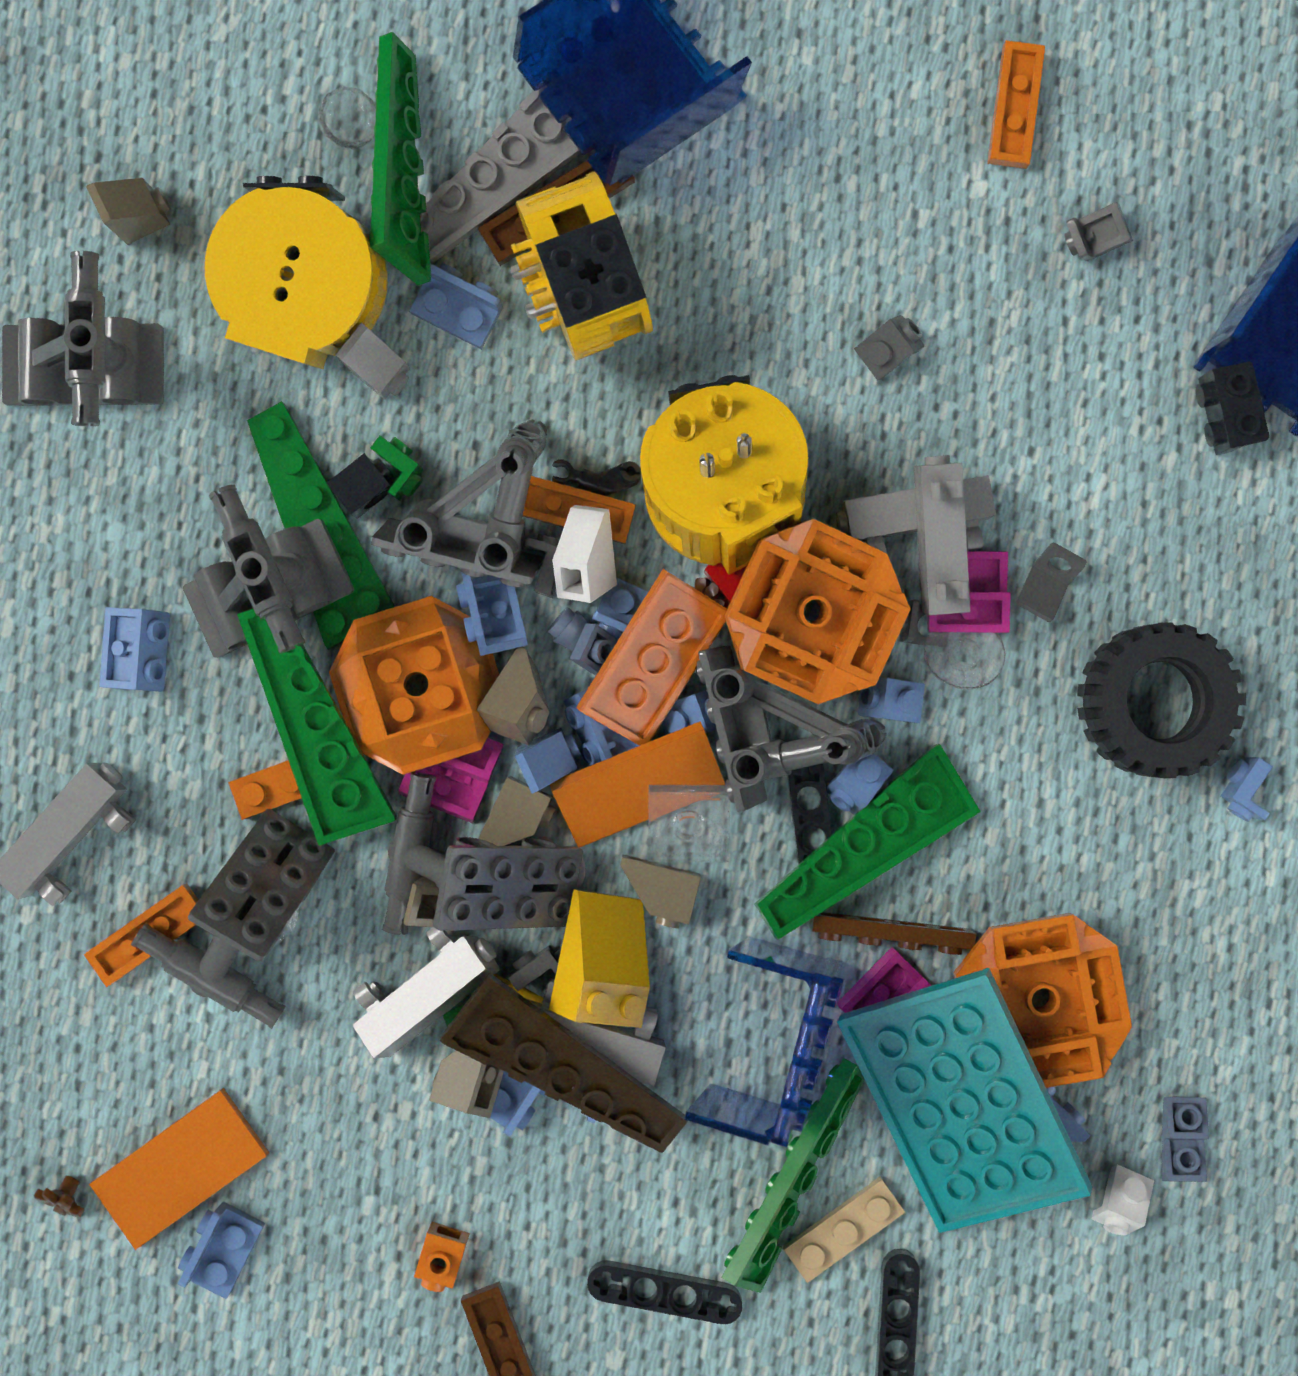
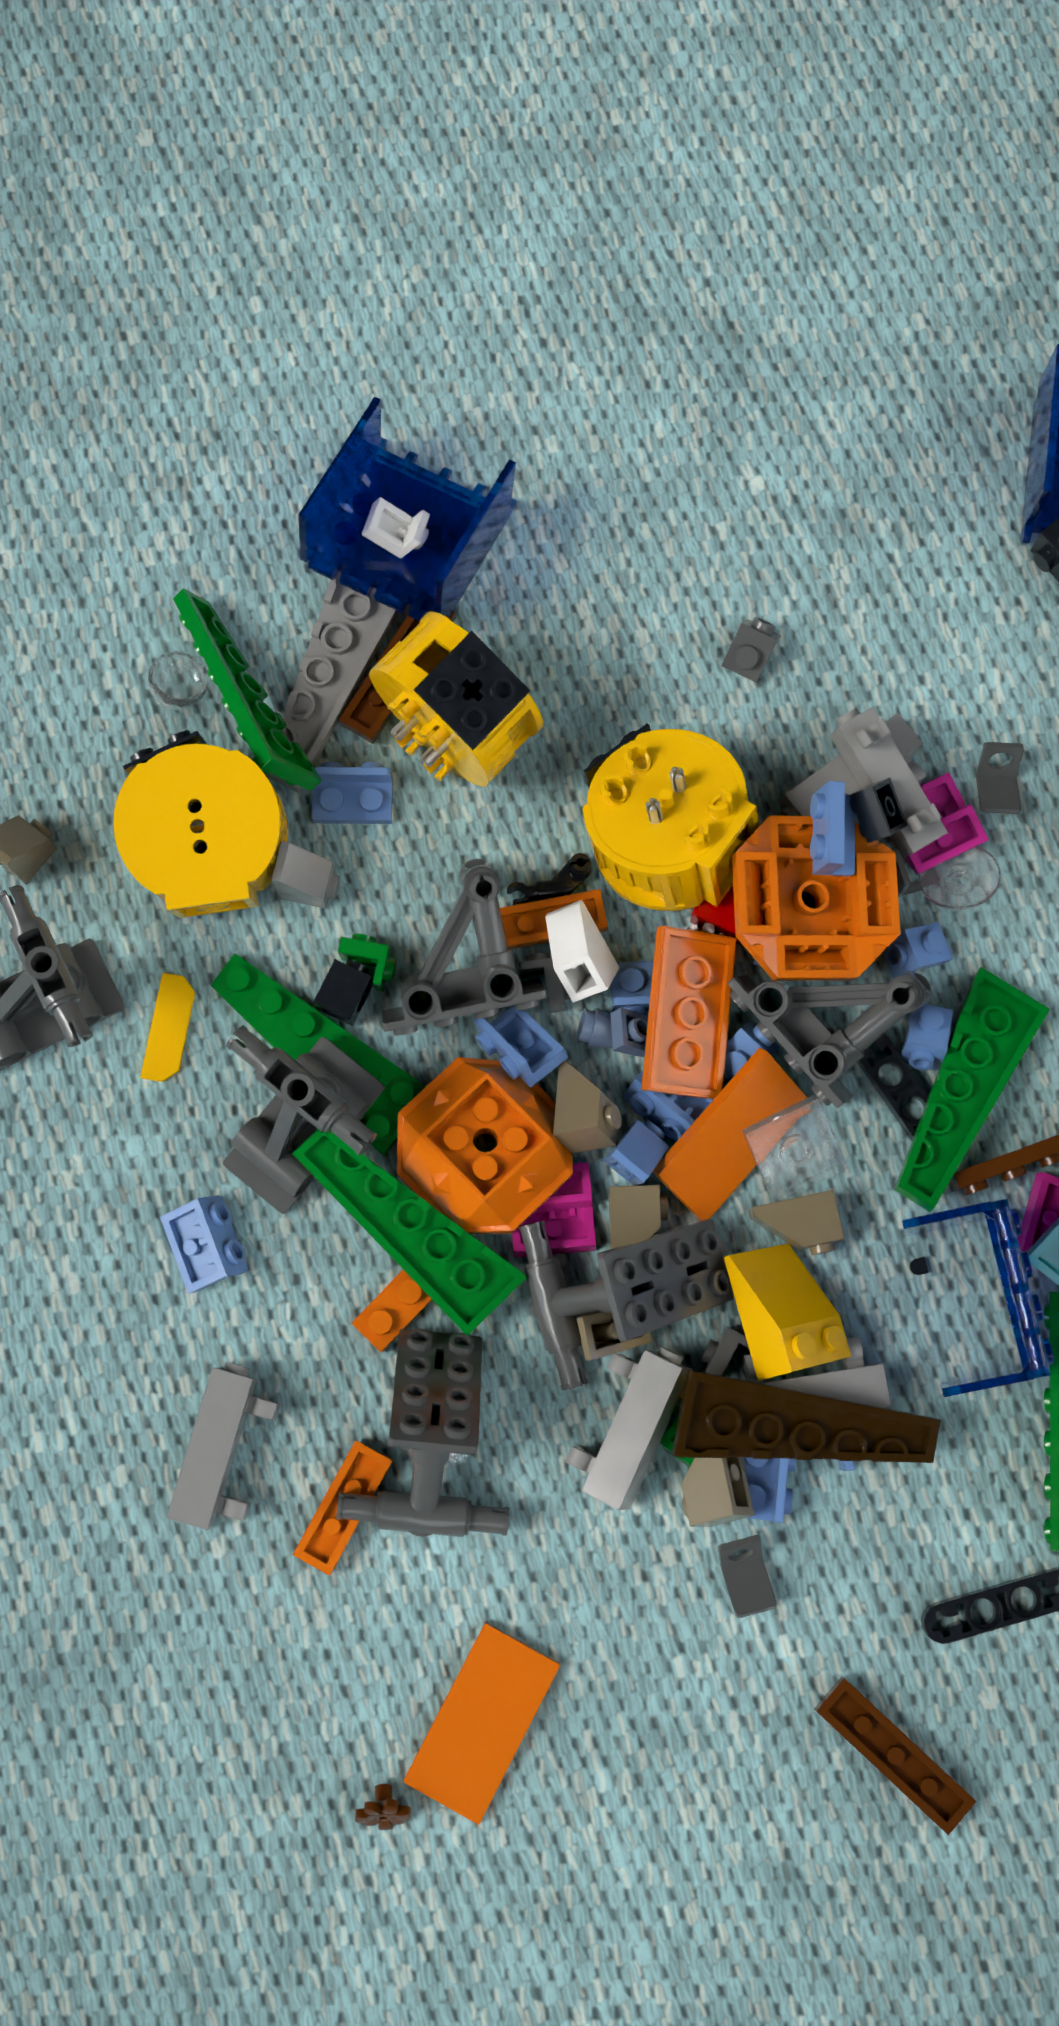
camera: 30 degrees left, 10 degrees down
(193, 440) = (168, 1028): none -> yellow piece
(221, 1251) = (563, 1782): medium blue bracket -> none
(445, 1244) = (771, 1662): orange brick -> none
(458, 1165) = (746, 1577): none -> dark grey bracket
(615, 69) = (395, 528): none -> white bracket
(745, 976) = (918, 1266): none -> black piece
(863, 562) = (833, 831): none -> medium blue bracket
(914, 563) = (878, 810): none -> black piece
(1016, 104) = (752, 400): orange plate -> none
(1098, 232) = (879, 470): dark grey bracket -> none

